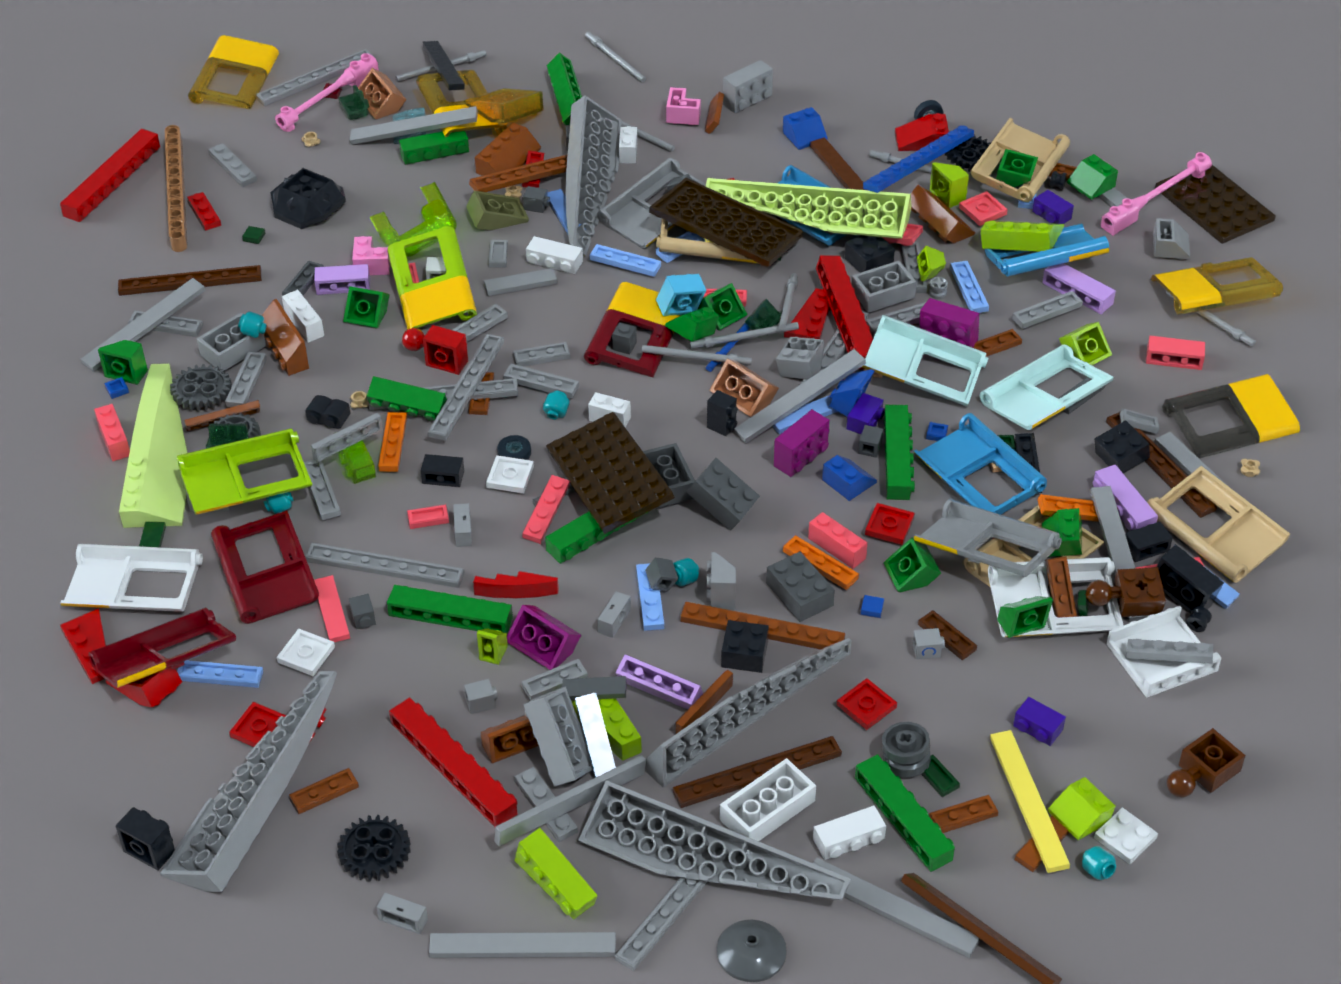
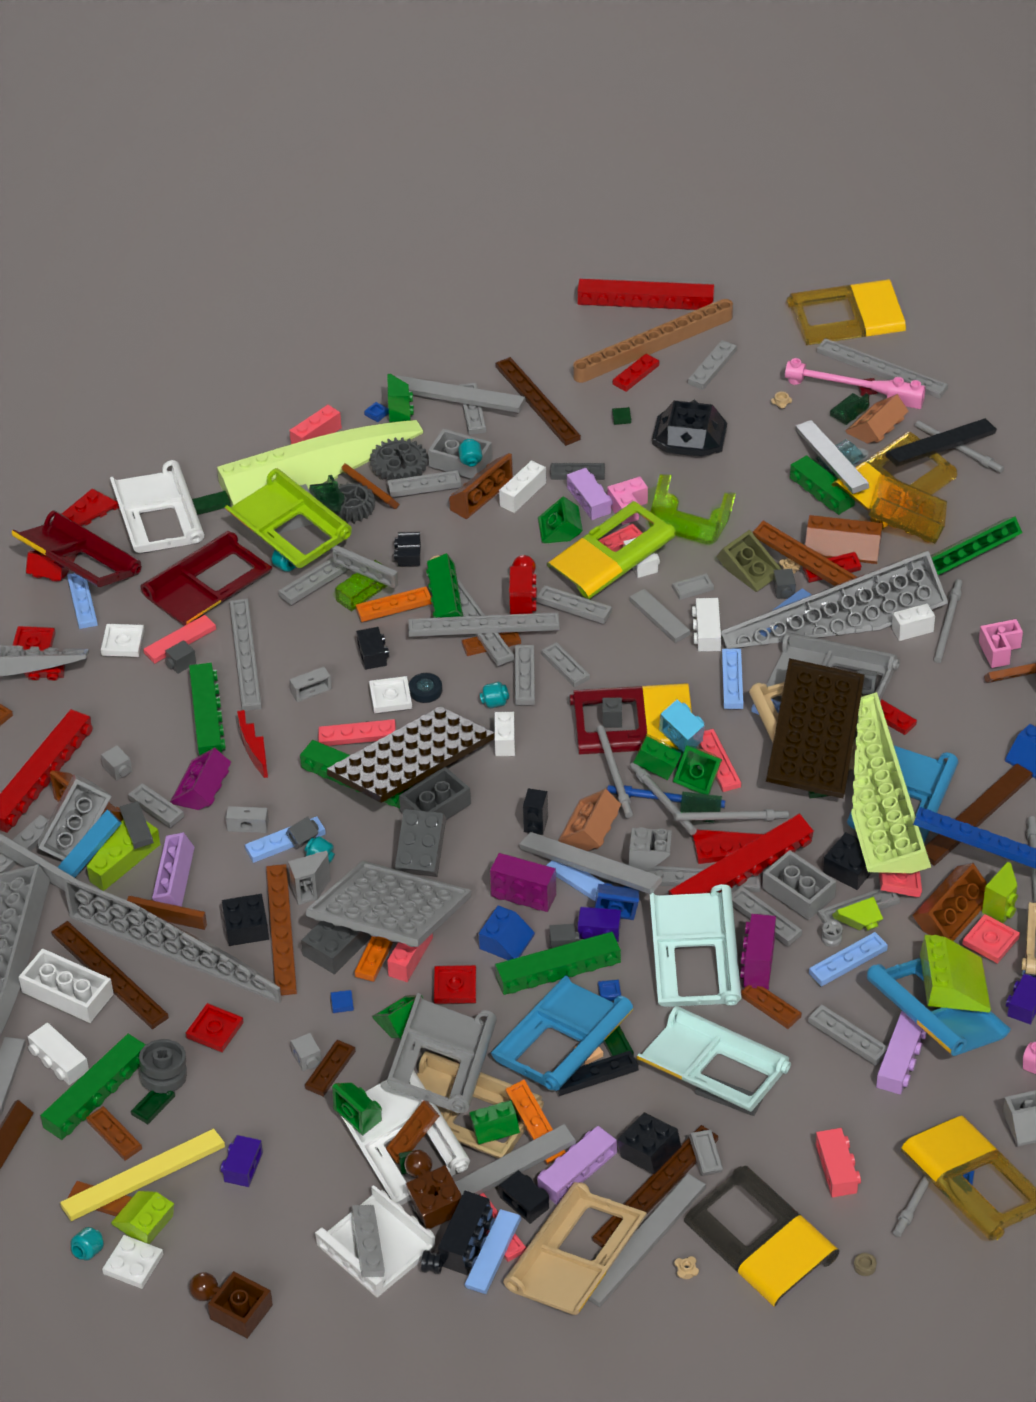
camera: 70 degrees right, 0 degrees up
(428, 516) = (315, 658): coral tile -> none
(491, 645) = (174, 748): lime slope -> none
(793, 530) = (389, 903): none -> light grey plate
(1088, 343) = (804, 1080): lime slope -> none
(1275, 369) = (865, 1264): none -> dark tan tile

